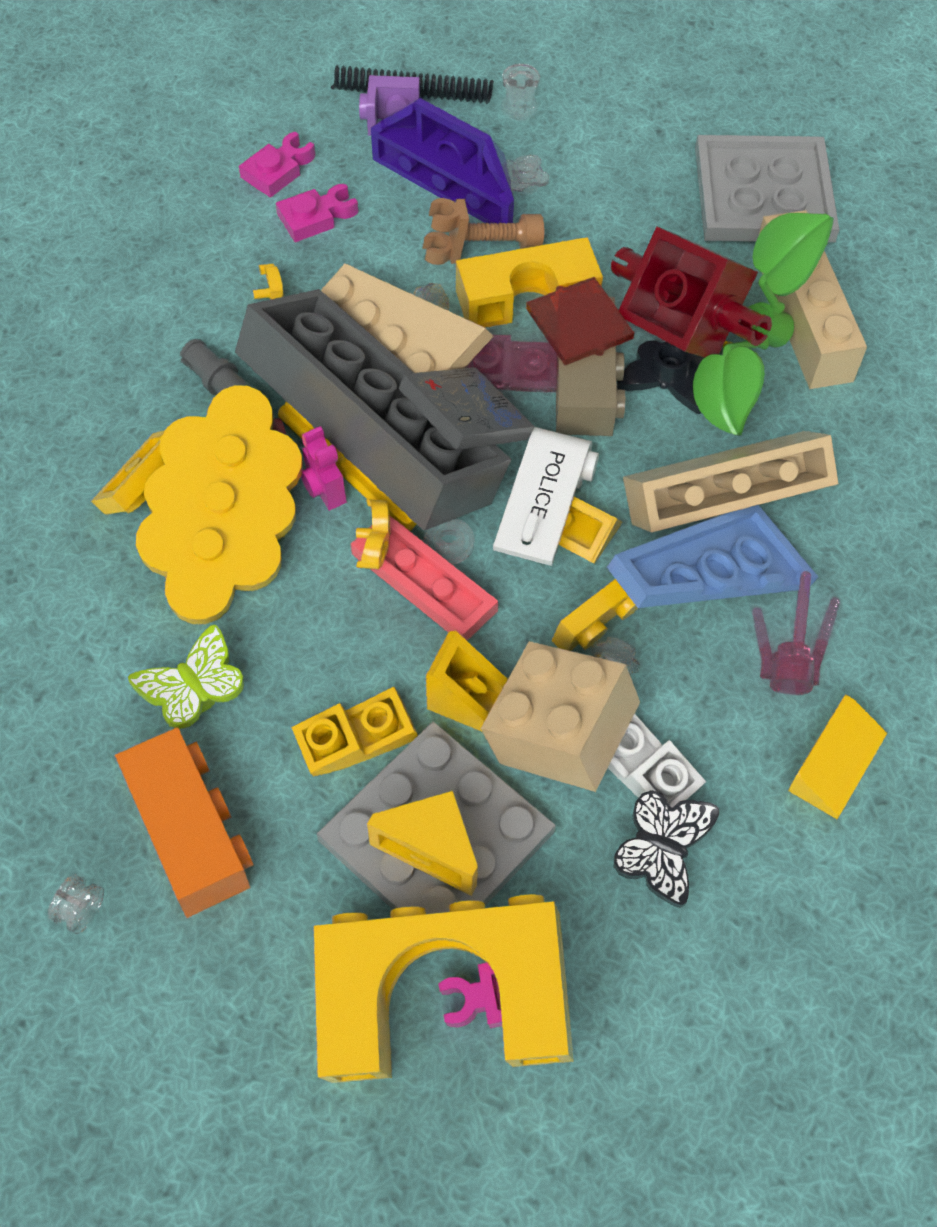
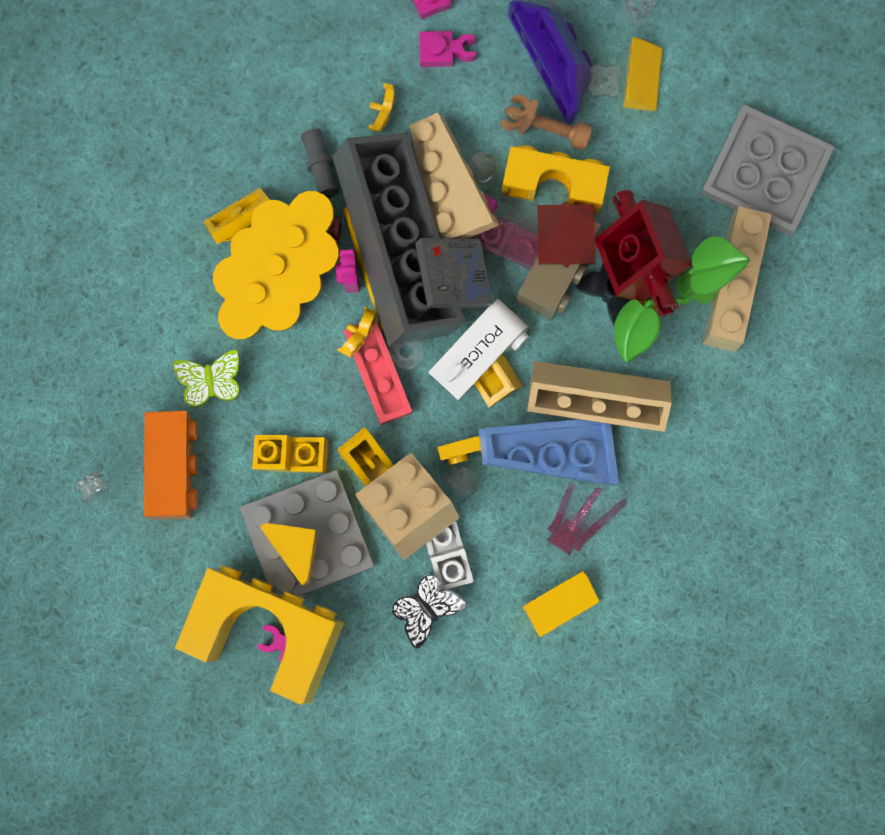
camera: 25 degrees right, 20 degrees up
(563, 156) = (642, 75): none -> yellow slope

